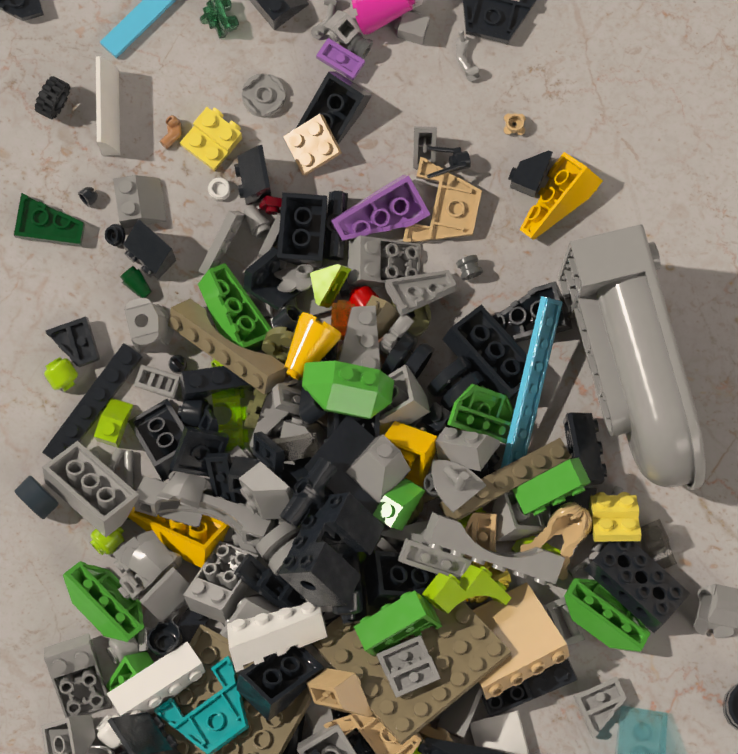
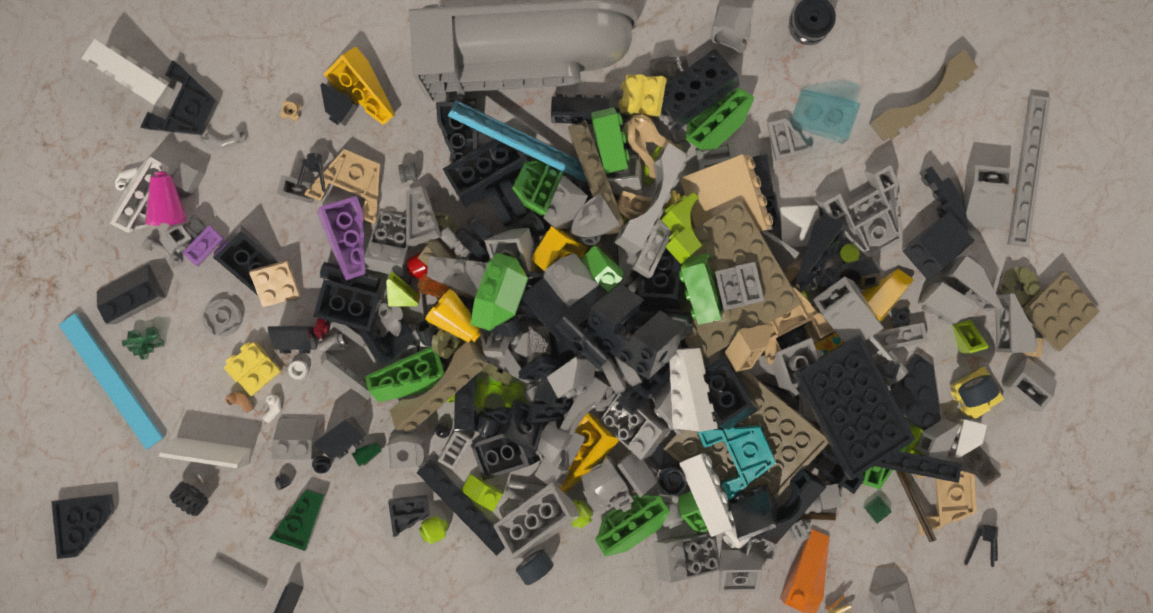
camera: 80 degrees left, 10 degrees up
(172, 171) = (274, 407): none -> white arm

